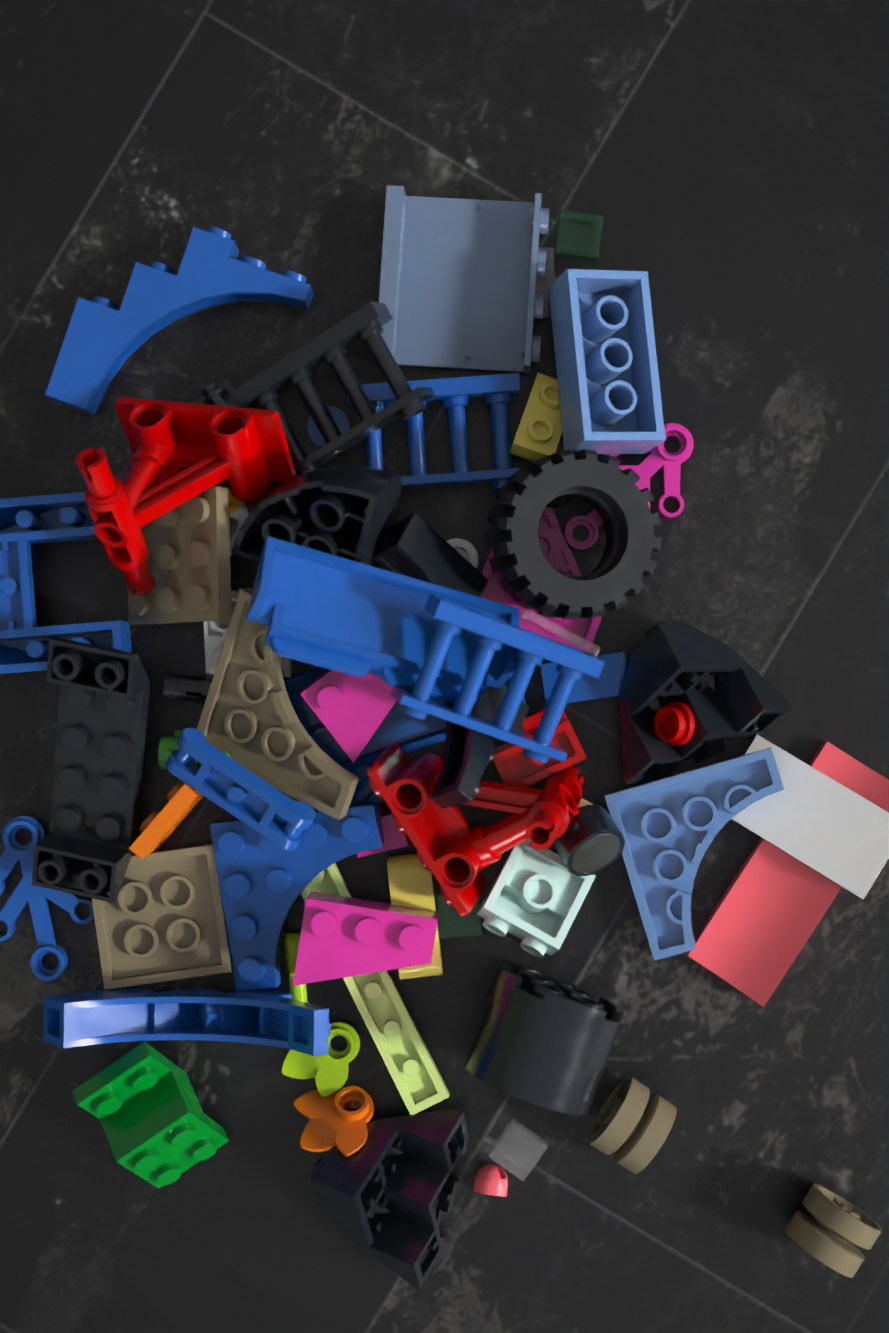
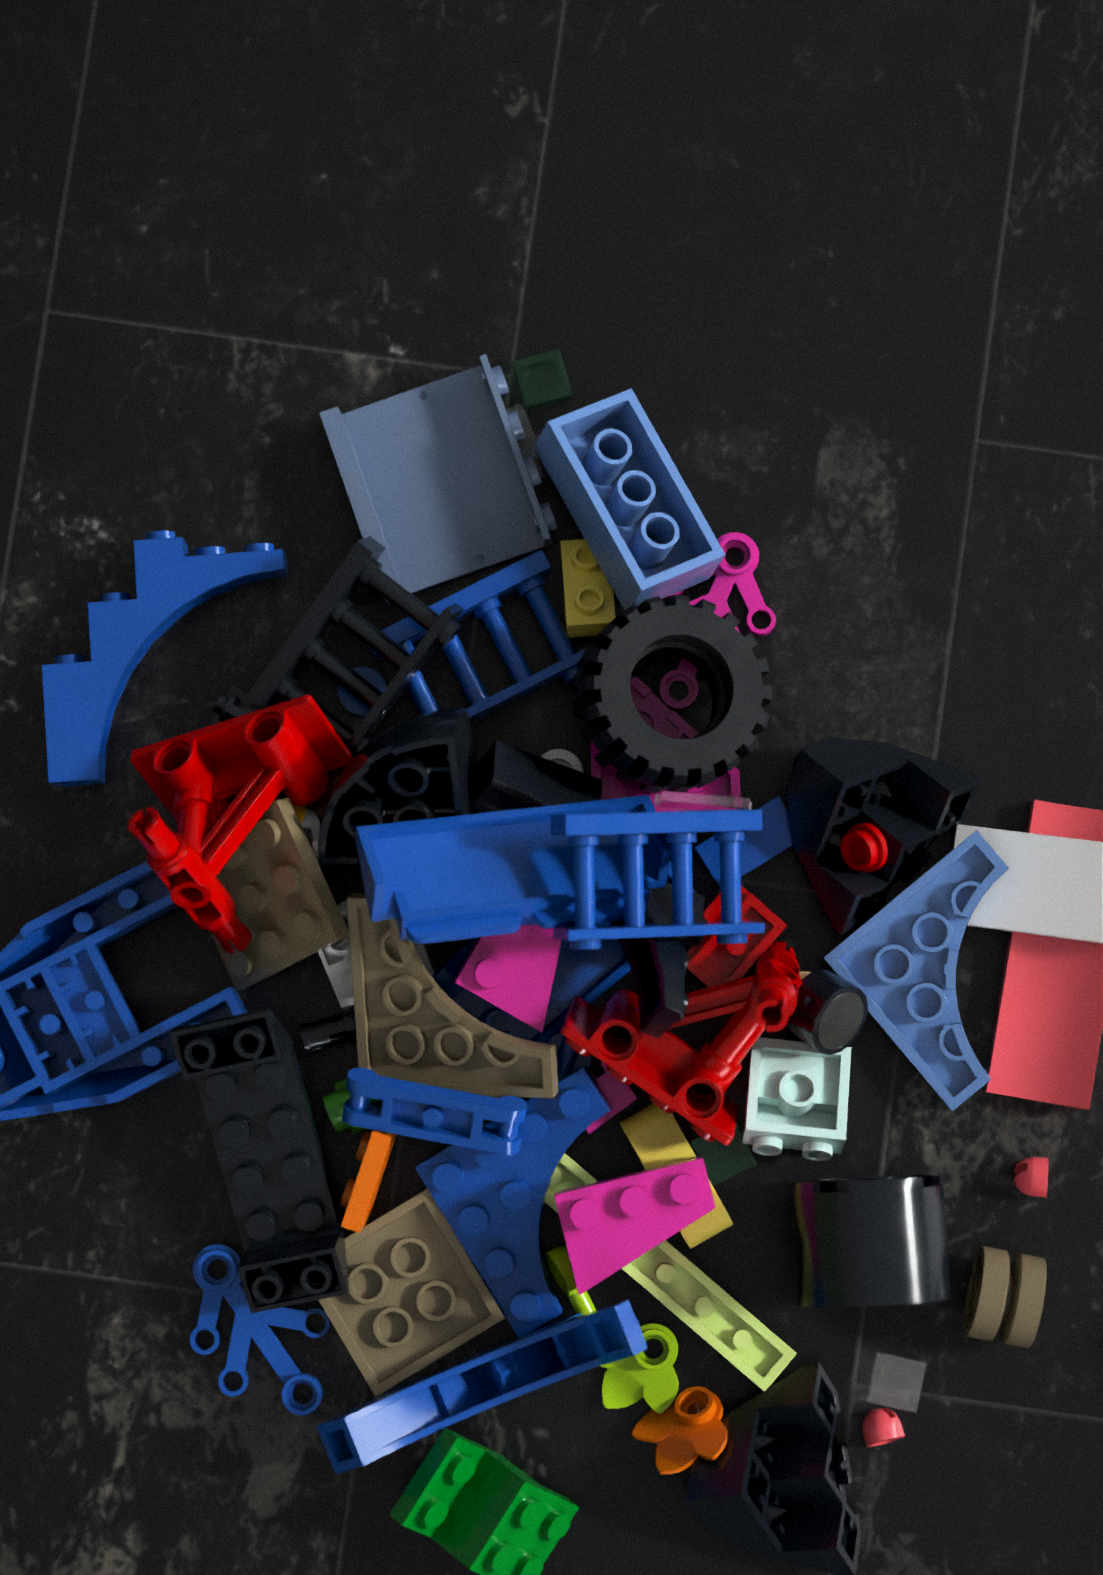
camera: 30 degrees left, 5 degrees down
(695, 1037) = (1032, 1176): none -> coral hinge

